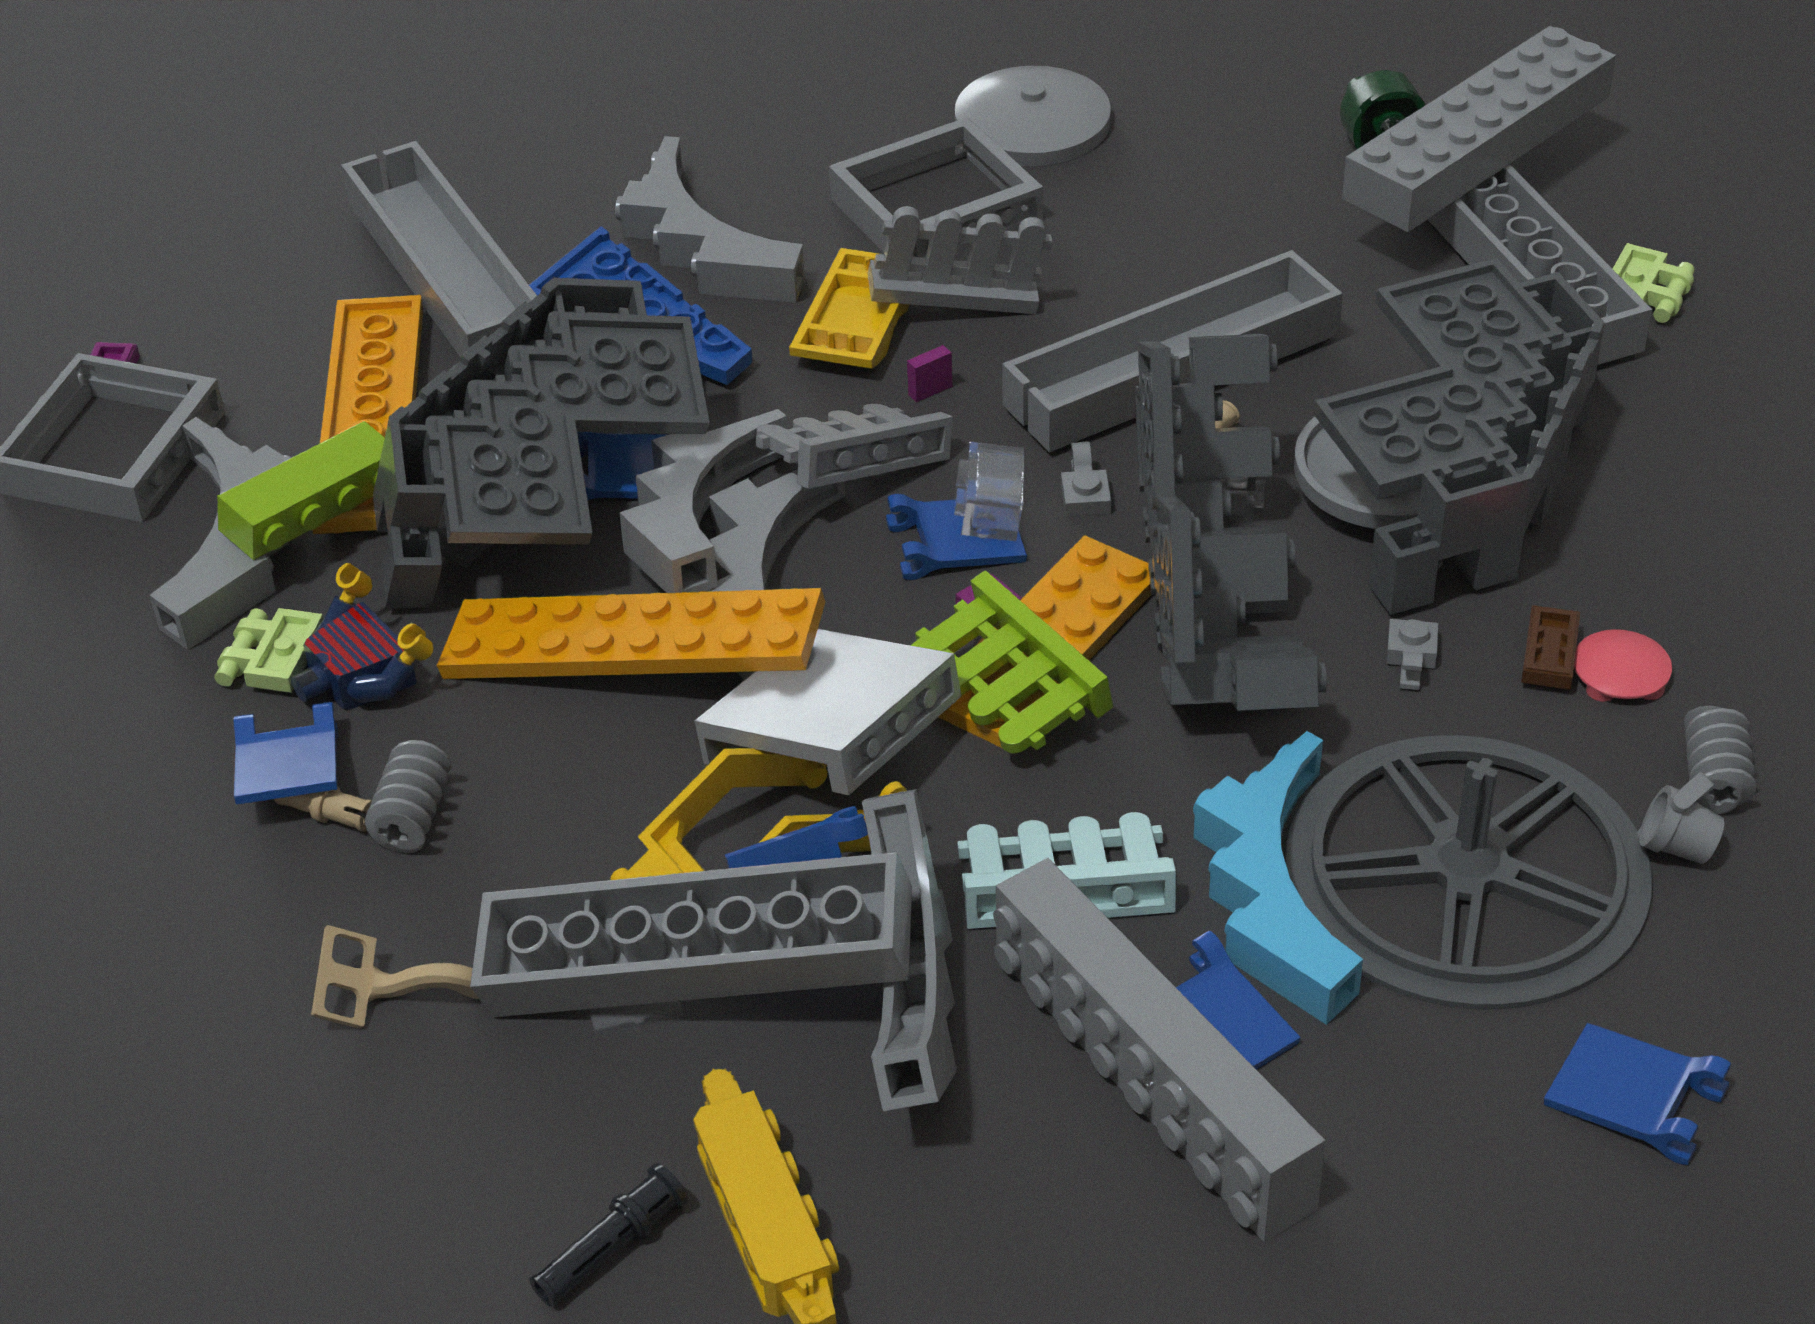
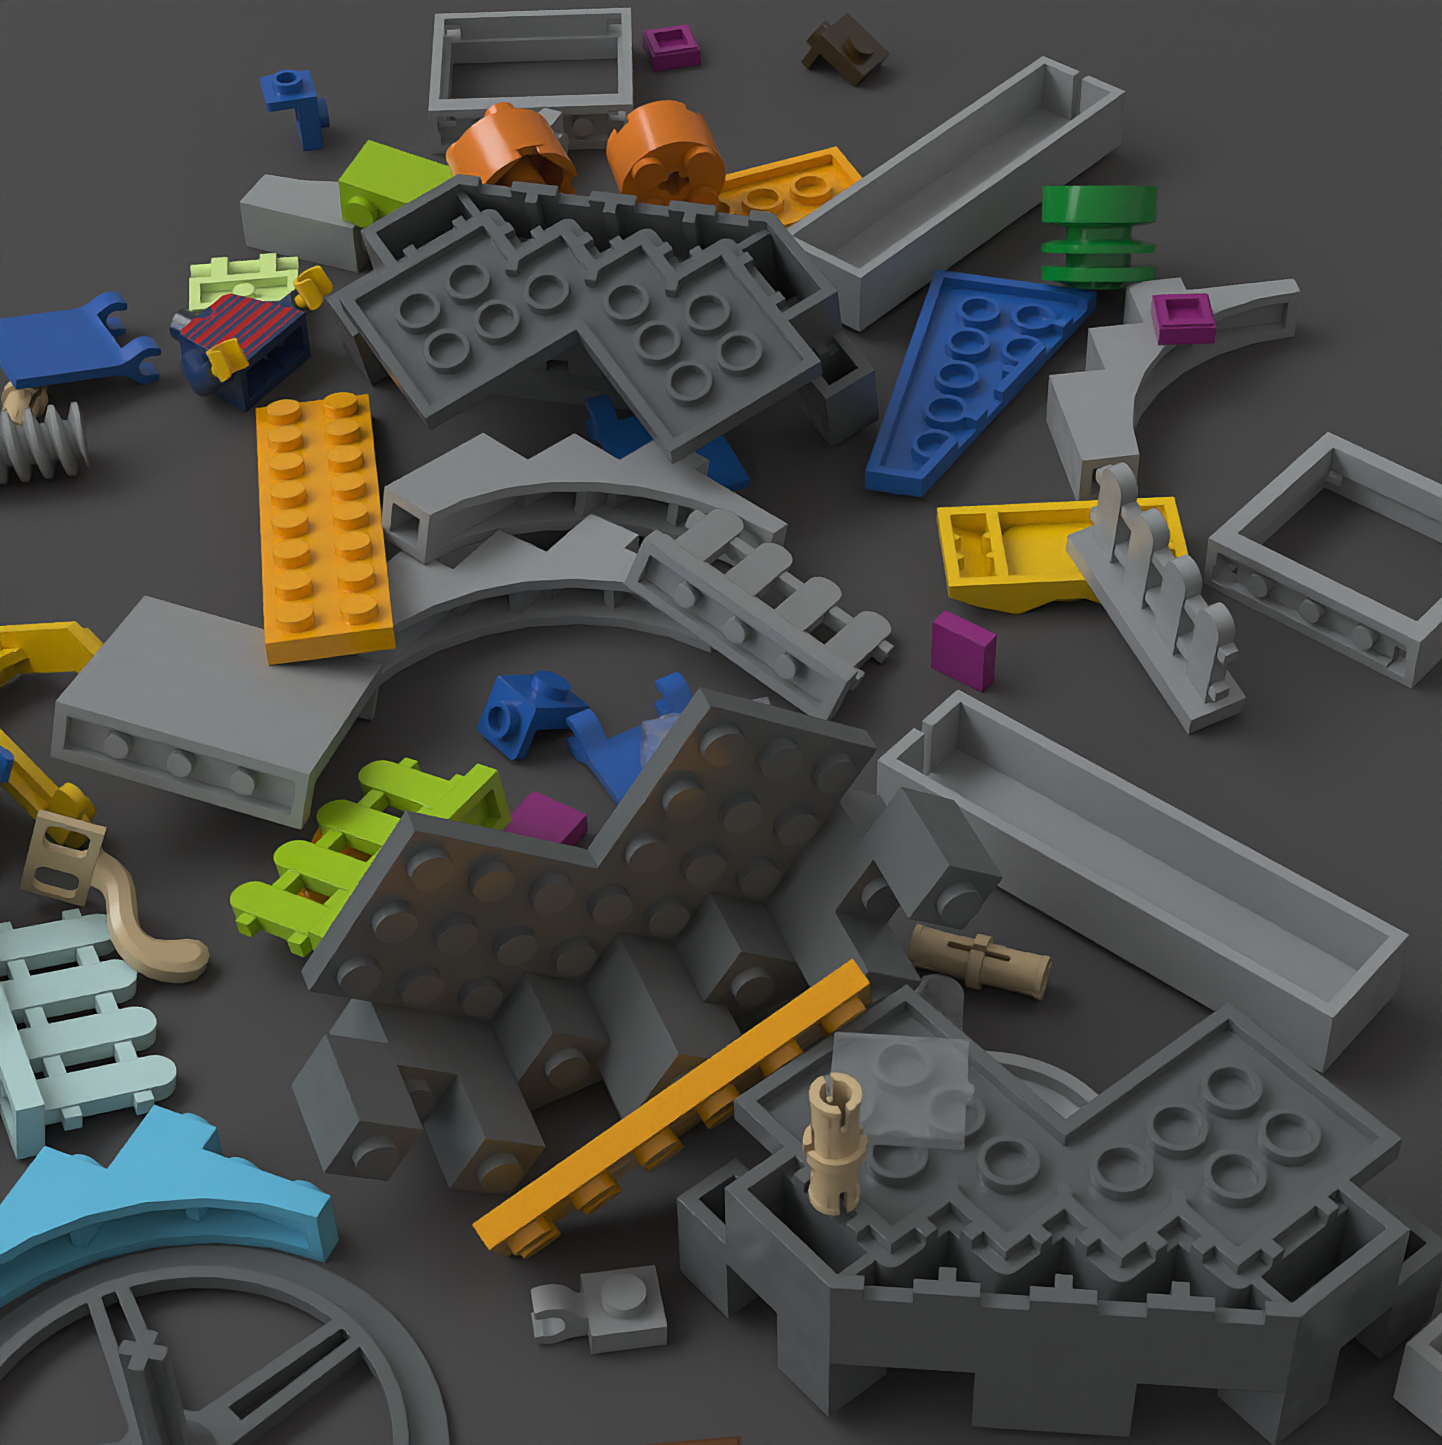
camera: 70 degrees right, 0 degrees up
(47, 567) = (296, 91): none -> blue bracket
(201, 267) = (846, 48): none -> dark brown bracket
(341, 365) = (666, 156): none -> orange brick
(355, 412) = (512, 147): none -> orange brick
(567, 196) = (1099, 234): none -> green wheel
(683, 187) = (1183, 319): none -> magenta tile
(877, 581) = (524, 705): none -> blue bracket
(945, 808) = (158, 959): none -> tan piece
(1335, 543) = (651, 1132): none -> light orange plate
(1400, 418) = (909, 1086): none -> clear piece
(1471, 424) = (835, 1143): none -> tan pin

